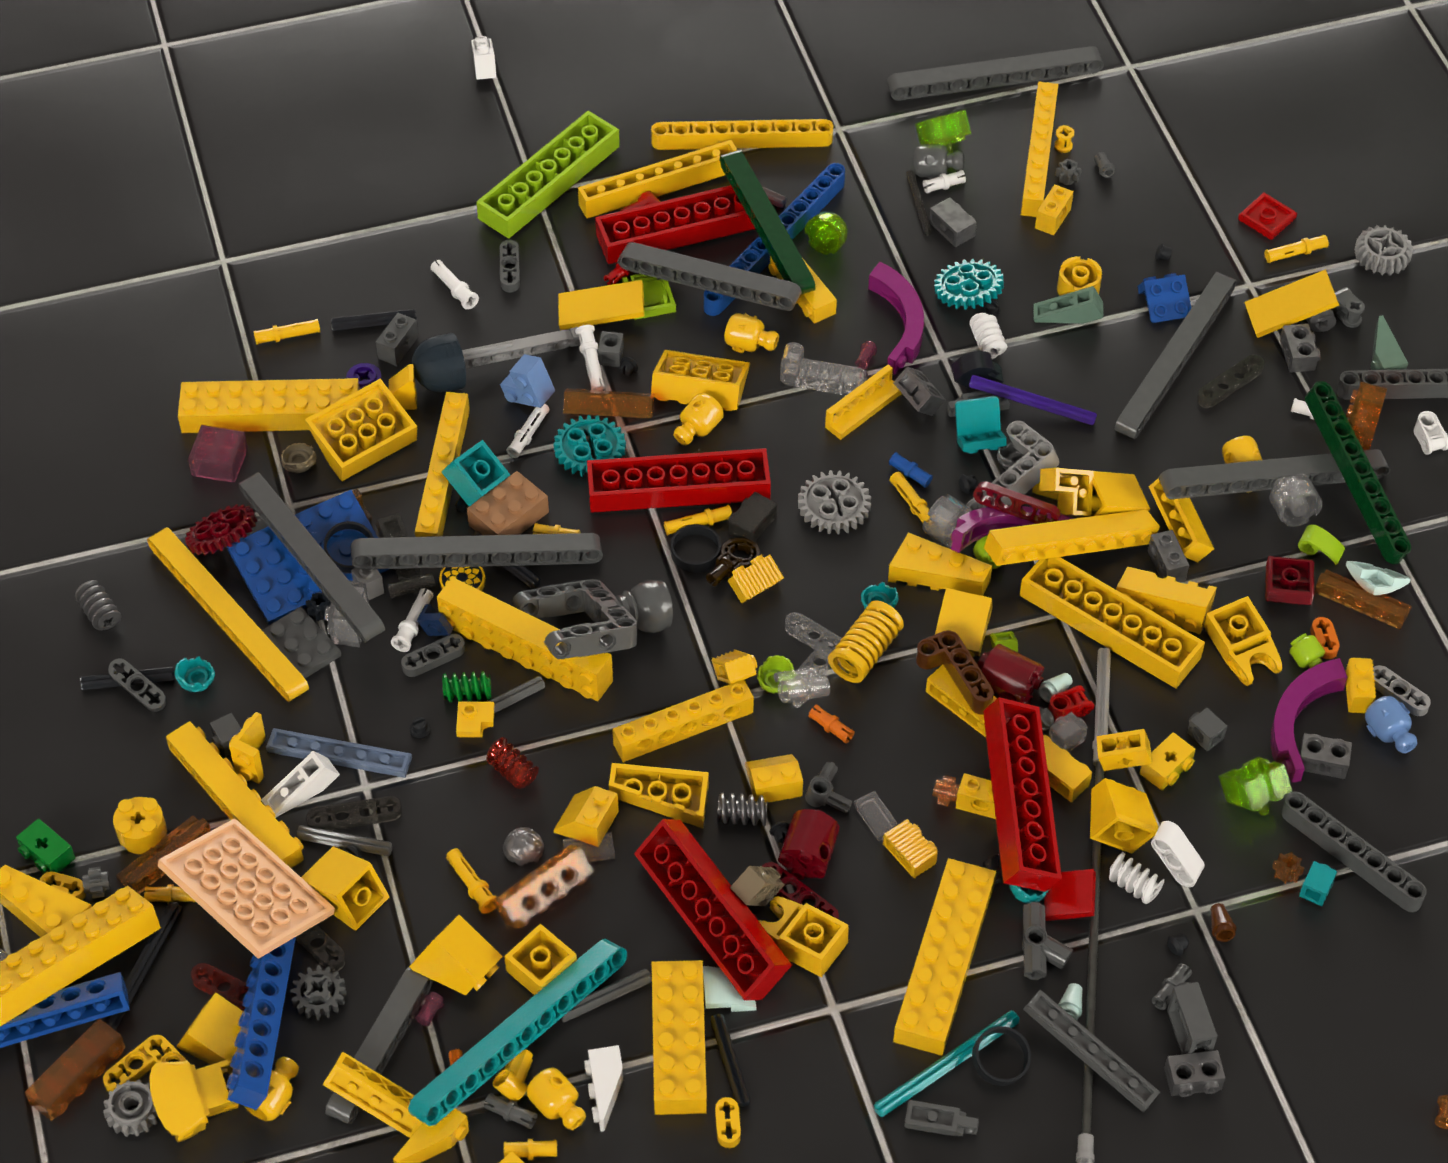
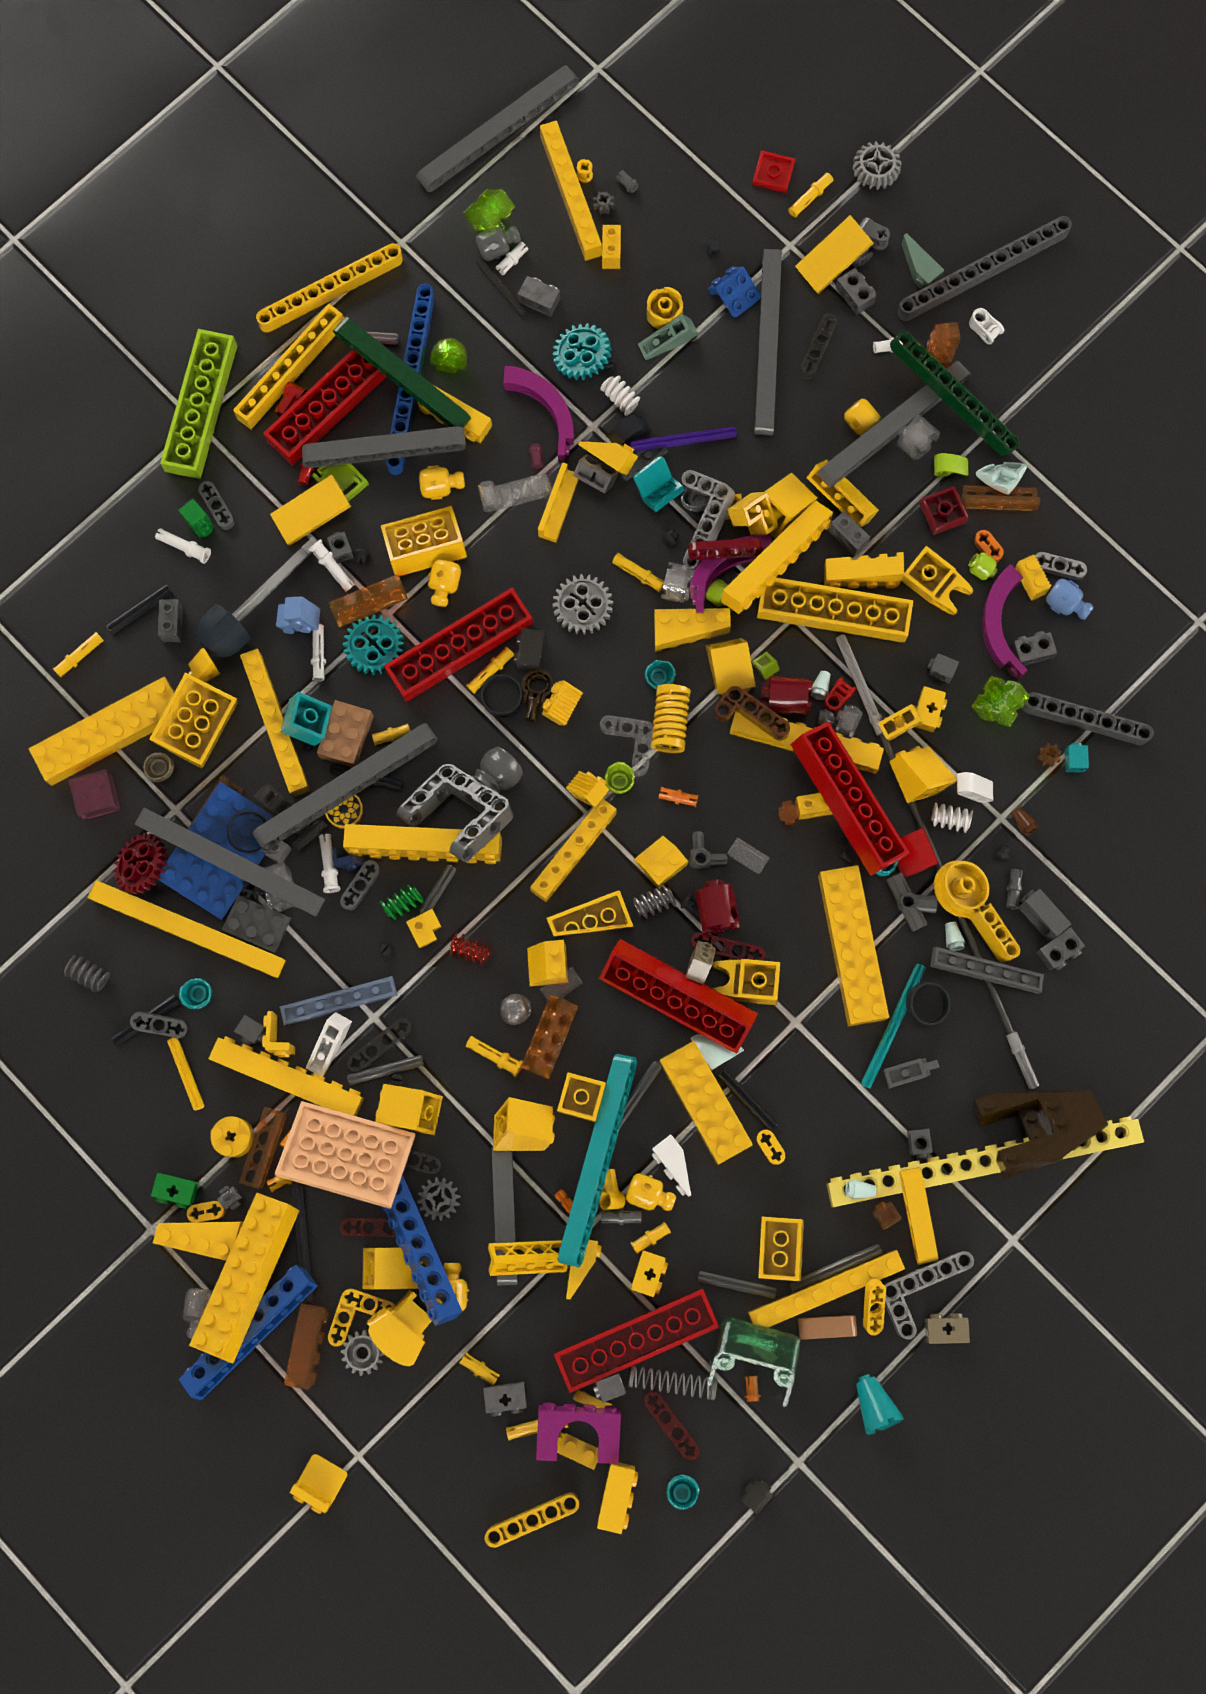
camera: 25 degrees left, 25 degrees up
(133, 746) = (185, 1073): none -> yellow axle
(364, 370) = (159, 660): dark purple gear -> none
(430, 1007) = (522, 1169): clear pink pin -> none
(481, 263) = (196, 519): none -> green brick
(483, 58) = (77, 308): white slope -> none
(801, 685) = (644, 779): clear pin -> none
(910, 470) = (623, 546): blue pin -> none
(910, 848) = (786, 871): yellow brick -> none
(946, 379) = (613, 454): none -> yellow slope
(1110, 959) = (963, 893): none -> yellow beam

